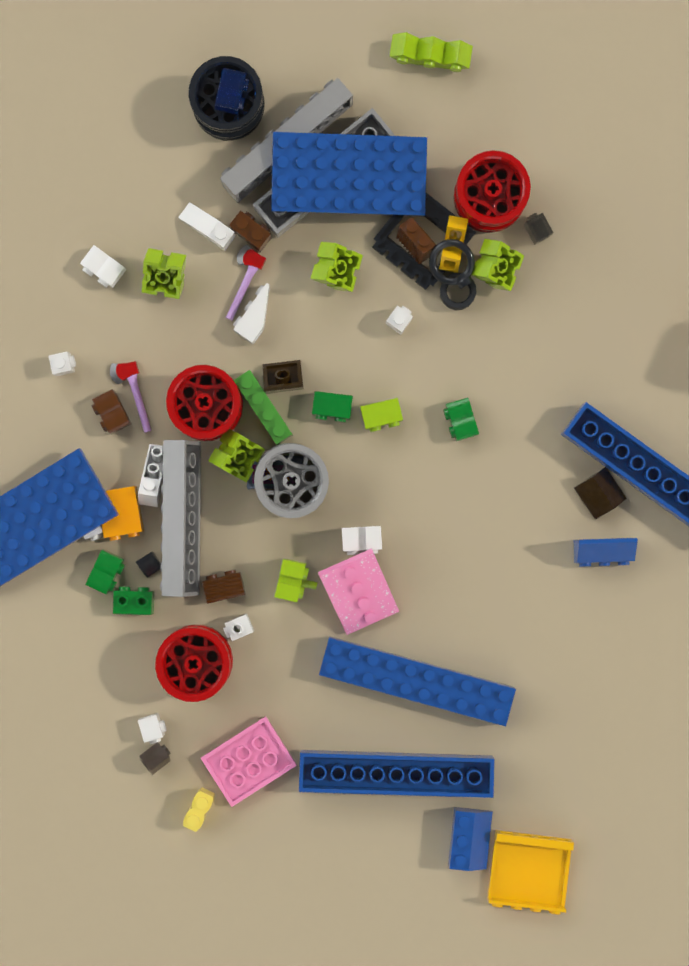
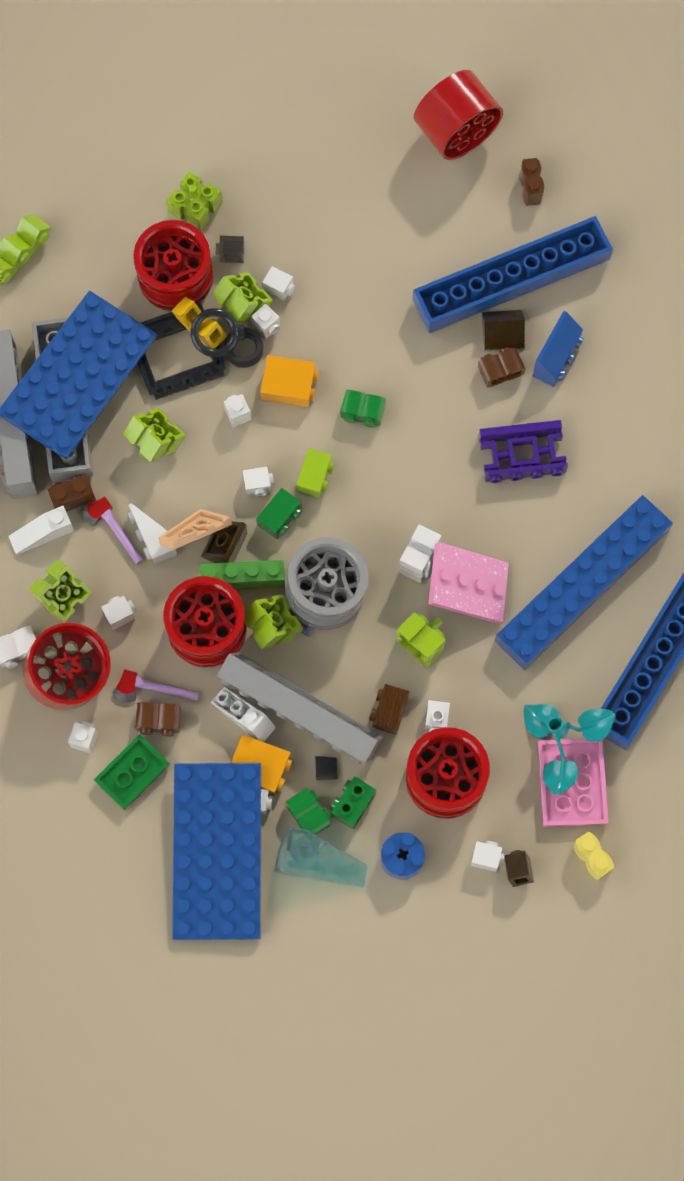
camera: 60 degrees left, 15 degrees down
(58, 417) = (132, 772): none -> green plate
(72, 598) = (313, 858): none -> clear light blue wedge
(97, 347) = (70, 634): none -> red wheel
(102, 665) = (407, 844): none -> blue brick
(177, 328) = (119, 611): none -> white brick
(276, 346) = (193, 528): none -> light nougat wing
(299, 756) = (544, 718): none -> teal plant
(348, 373) = (258, 481): none -> white brick
(415, 240) = (175, 355): reddish brown brick -> none
(449, 346) = (289, 381): none -> light orange brick
(490, 296) = (265, 321): none -> white brick
(511, 561) = (523, 435): none -> dark purple fence
(530, 286) = (278, 283): none -> white brick
(563, 172) = (194, 201): none -> lime brick
(564, 511) = (501, 367): none -> reddish brown brick

